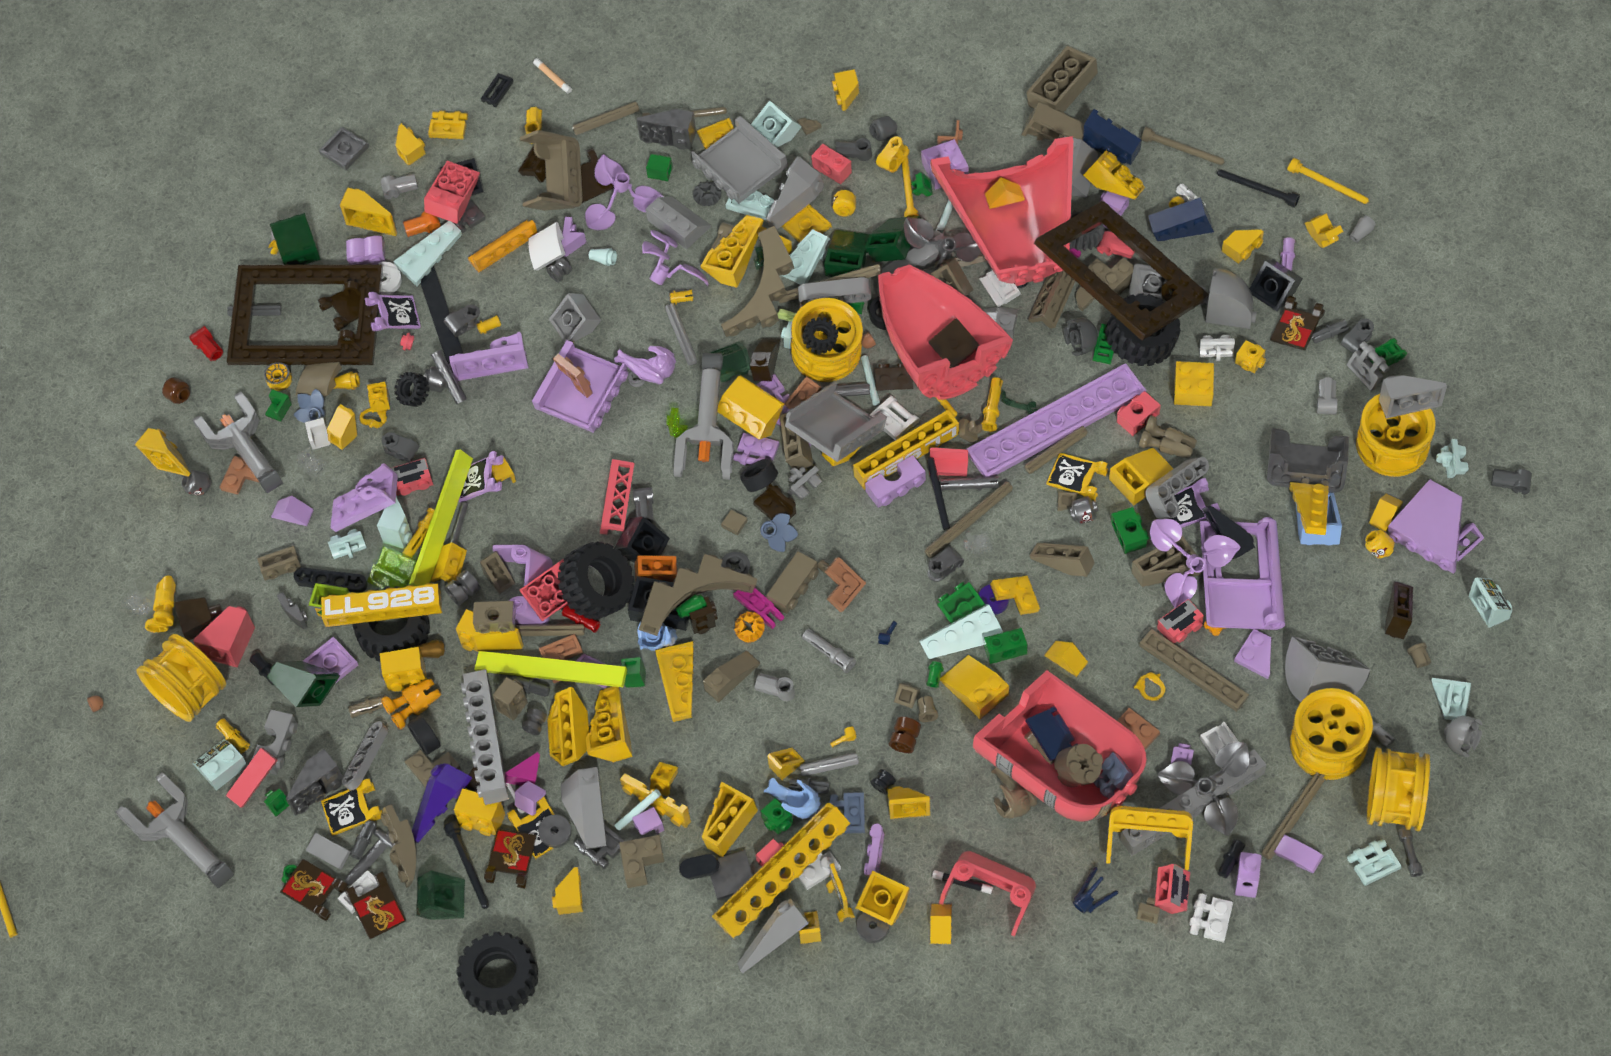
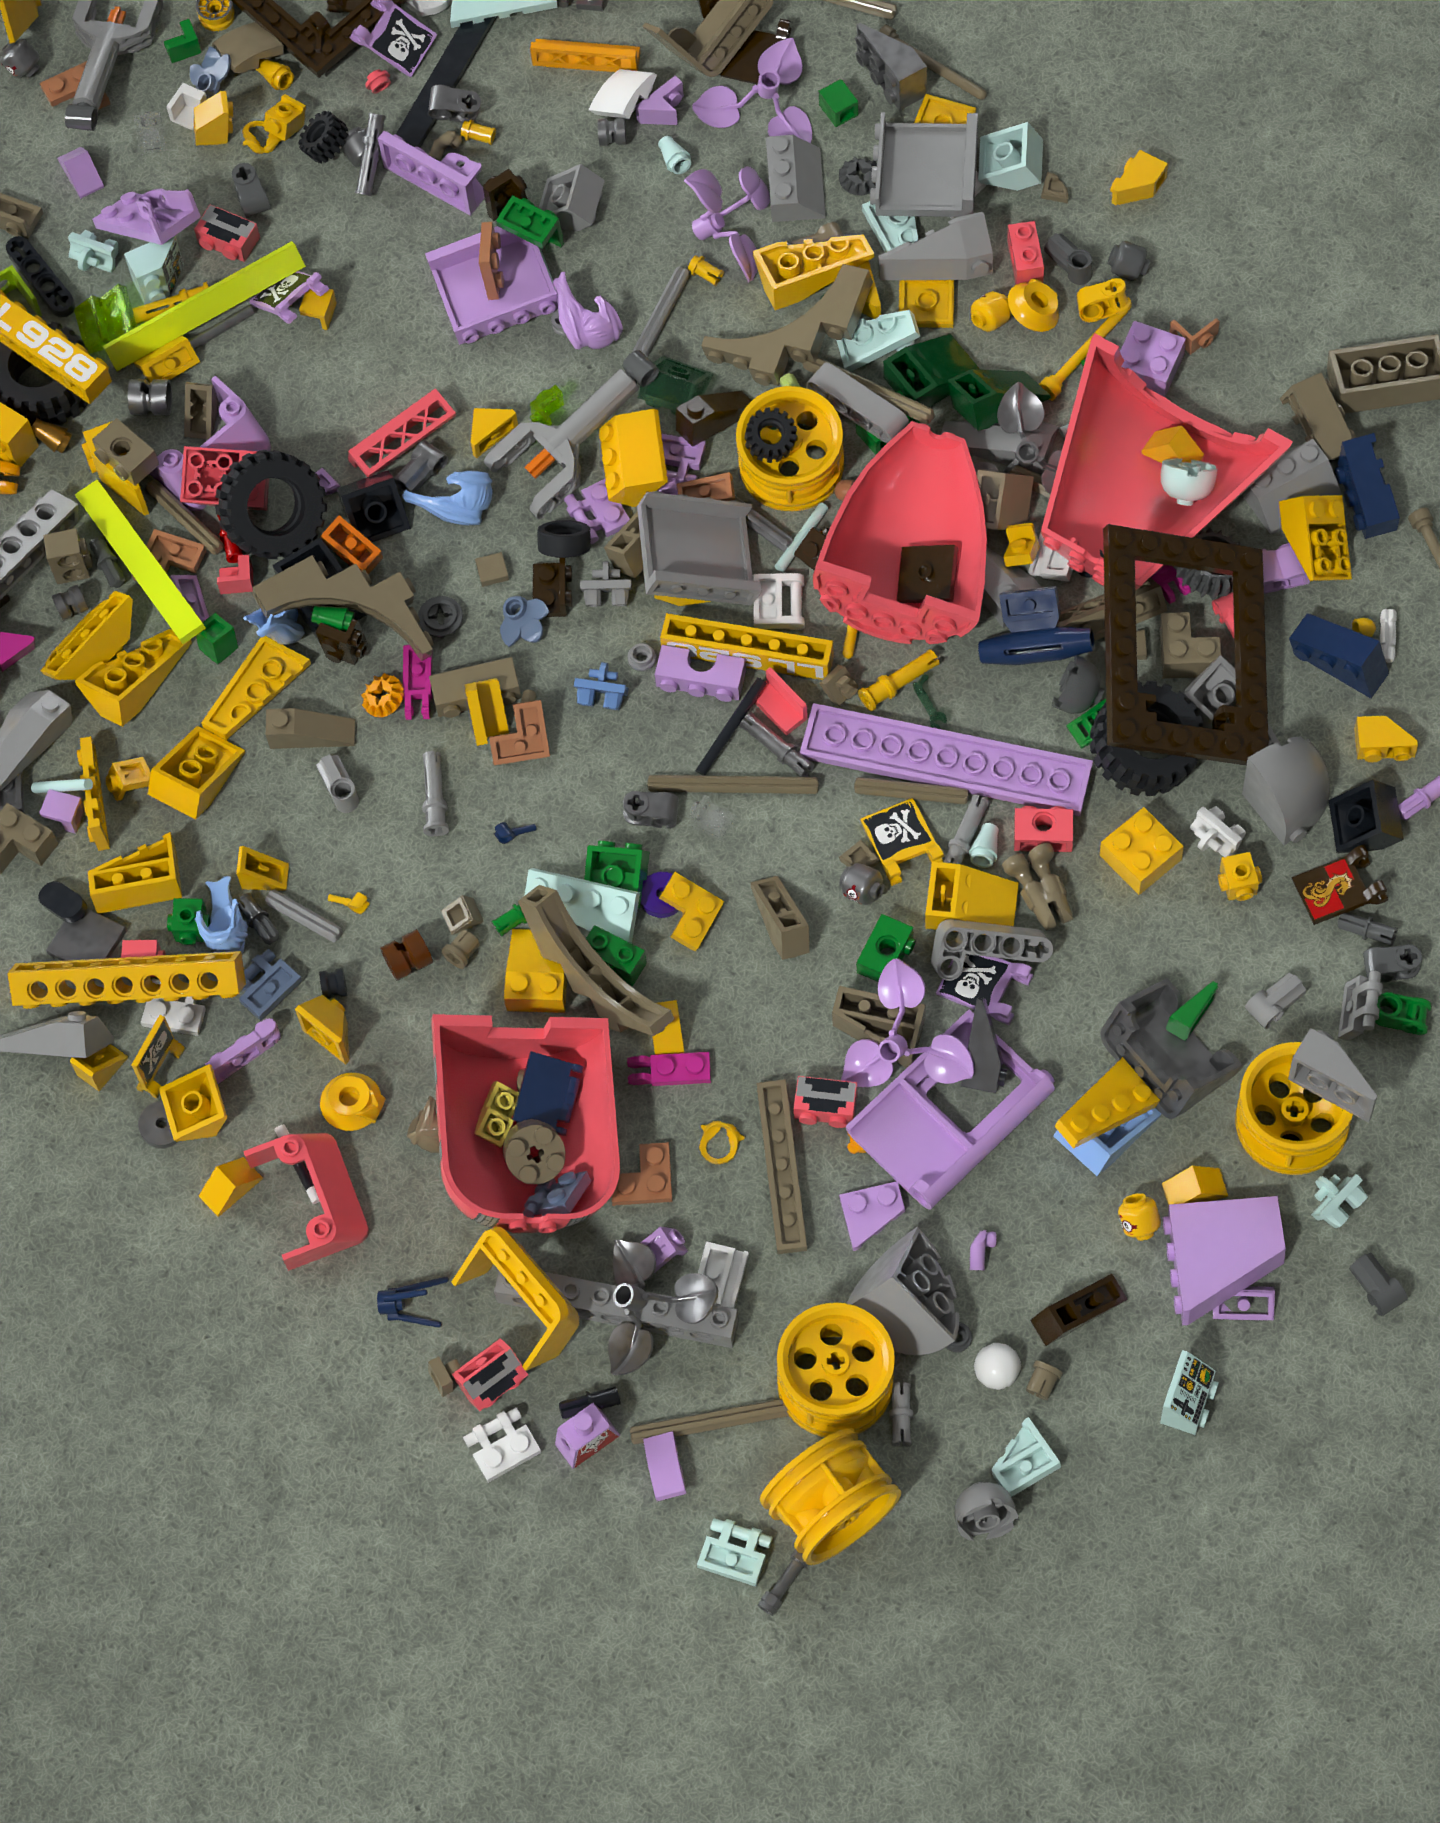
camera: 45 degrees right, 5 degrees up
(477, 339) = (442, 142): none -> dark tan arm
(543, 336) = (499, 191): none -> dark brown bracket
(573, 340) = (530, 223): none -> green bracket
(609, 635) = (238, 578): none -> coral panel
(656, 456) = (490, 427): none -> yellow slope
(687, 501) = (462, 507): none -> light blue hair
(696, 745) = (194, 772): none -> yellow slope
(812, 587) = (486, 709): none -> yellow panel
(849, 535) = (613, 692): none -> medium blue hips
(856, 495) = (641, 649): none -> light grey plate
(862, 183) = (1034, 305): none -> yellow piece
(955, 828) = (351, 1101): none -> yellow piece
(982, 295) = (1022, 545): none -> yellow bracket
(1006, 661) = (585, 969): none -> dark tan arch
(1031, 199) = (1187, 480): none -> light aqua cylinder
(1036, 326) = (1034, 631): none -> dark blue plate
(1037, 766) = (497, 1114): none -> light yellow slope
(1092, 672) = (671, 1069): none -> dark pink hinge
(1107, 454) = (960, 845): none -> light grey pin
(1120, 445) = (984, 849): none -> light aqua cone
(1299, 435) = (1187, 1017): none -> green slope
(1327, 628) = (977, 1249): none -> lavender arm
(1392, 668) = (997, 1366): none -> white hair

